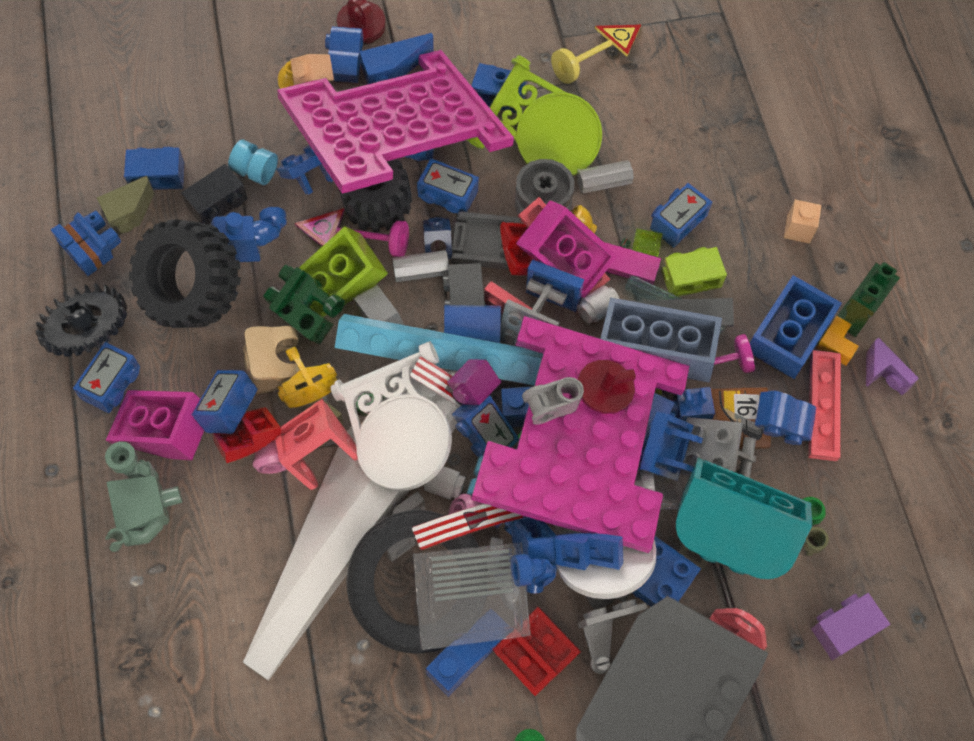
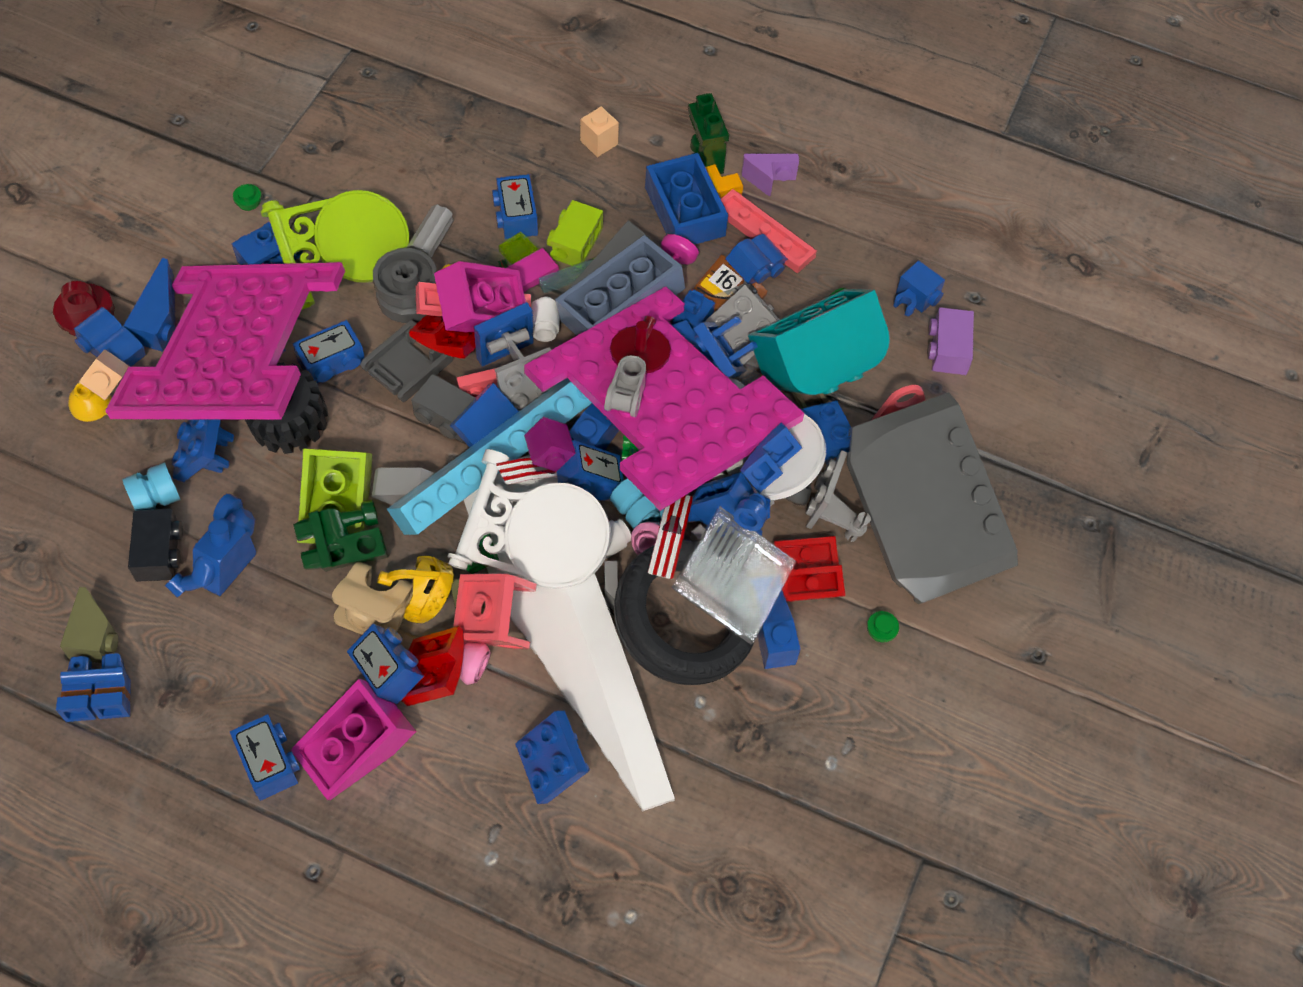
camera: 55 degrees left, 5 degrees down
(77, 314) = (173, 740): black gear -> none
(136, 502) = (418, 802): sand green torso -> none
(156, 267) = (203, 645): black tyre -> none
(161, 166) = (74, 568): blue brick -> none
(231, 566) = (551, 757): none -> blue plate
(325, 226) = (276, 478): dark pink piece -> none
(420, 266) = (387, 425): light grey axle -> none
(437, 229) = (365, 387): dark blue bracket -> none
(533, 44) = (247, 197): none -> green plate
(567, 64) = (296, 184): light yellow piece -> none
(879, 564) = (919, 288): none -> blue brick

